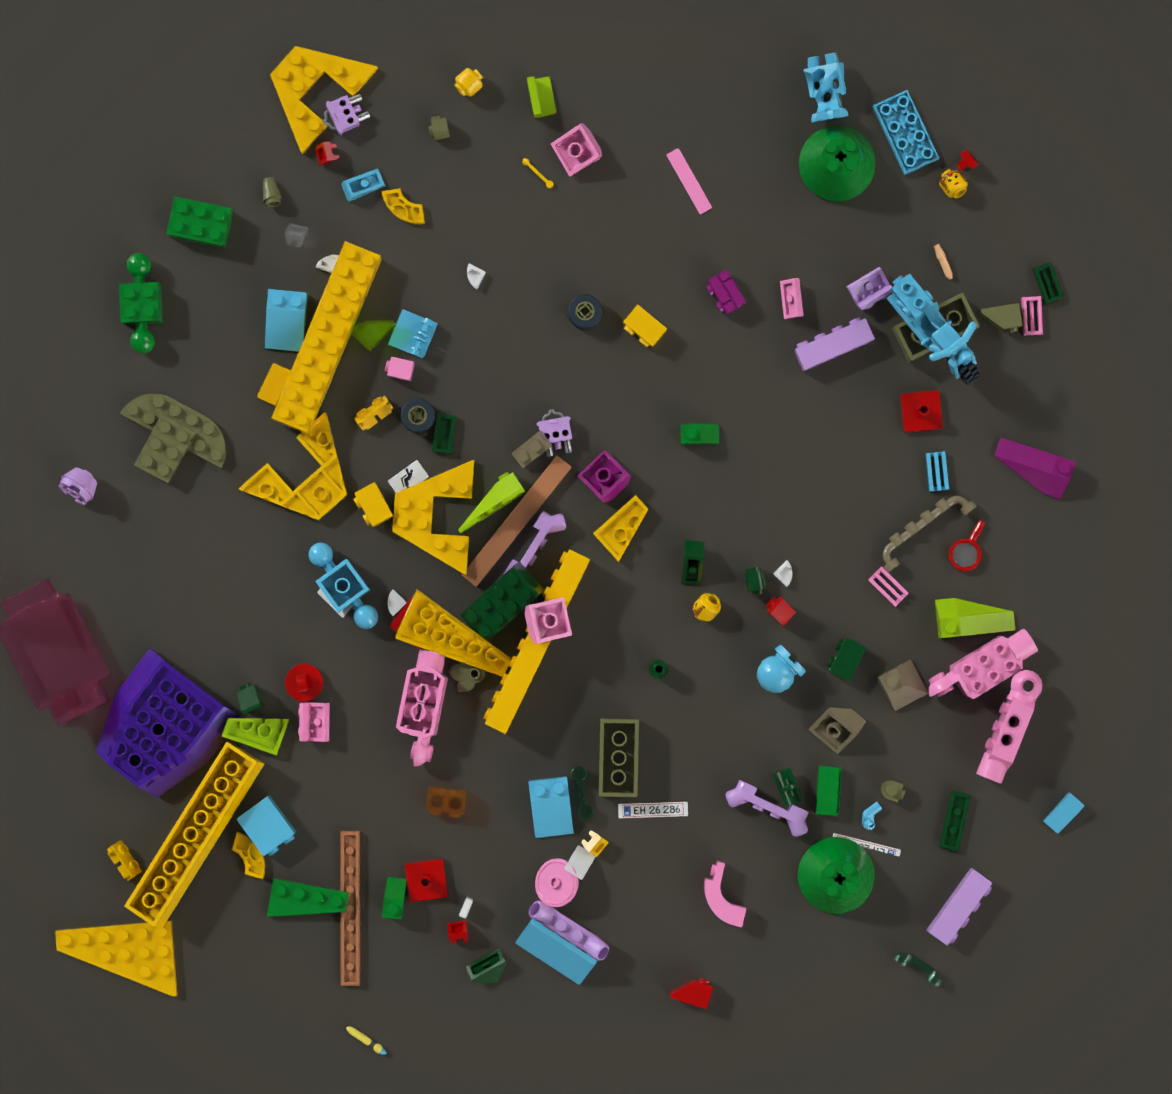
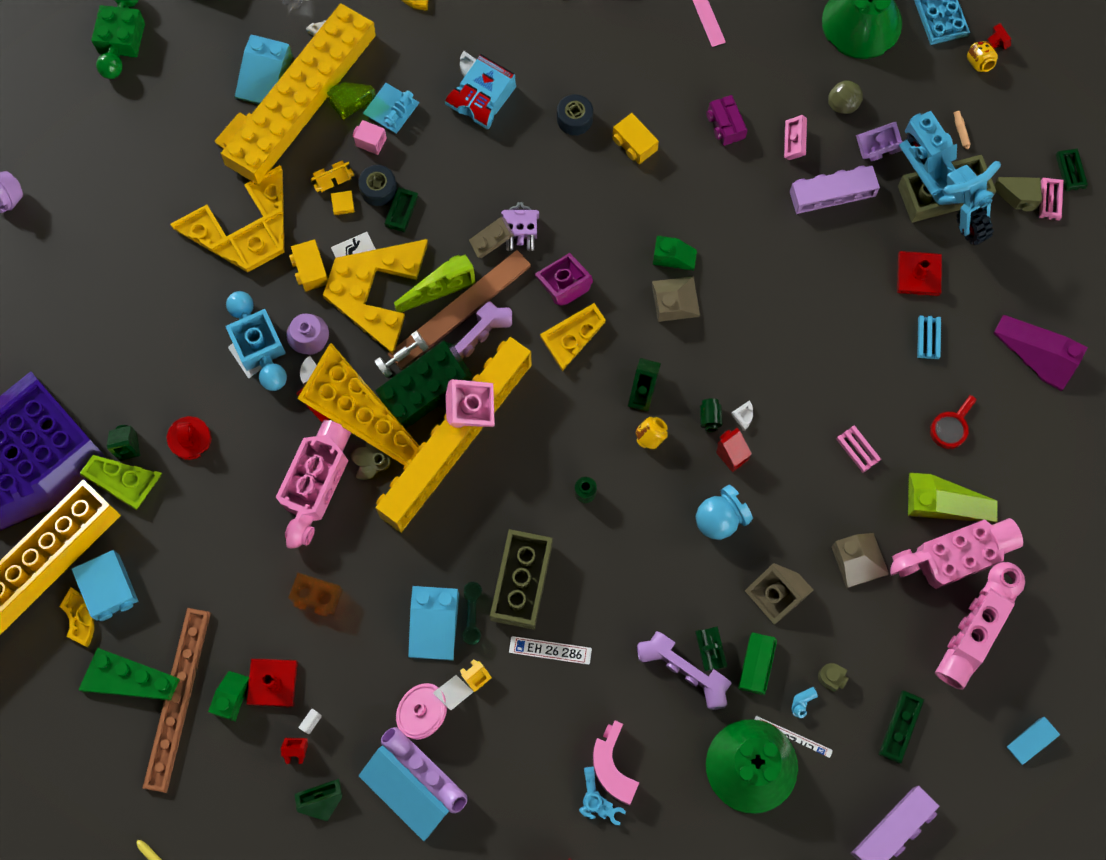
camera: 10 degrees right, 15 degrees down
(173, 432) = (116, 158): olive plate -> none
(314, 722) = (187, 480): bright pink bracket -> none
(386, 569) = (307, 334): none -> lavender cone
(389, 436) = (342, 202): none -> yellow tile
(461, 588) = (401, 354): none -> white wheel
(495, 306) = (482, 91): none -> piece
(707, 474) = (675, 299): none -> dark tan slope
(712, 928) = (595, 802): none -> medium azure piece
(831, 249) = (845, 97): none -> olive hair
(846, 658) = (800, 518): dark green brick -> none
(926, 518) = (912, 383): dark tan bar -> none

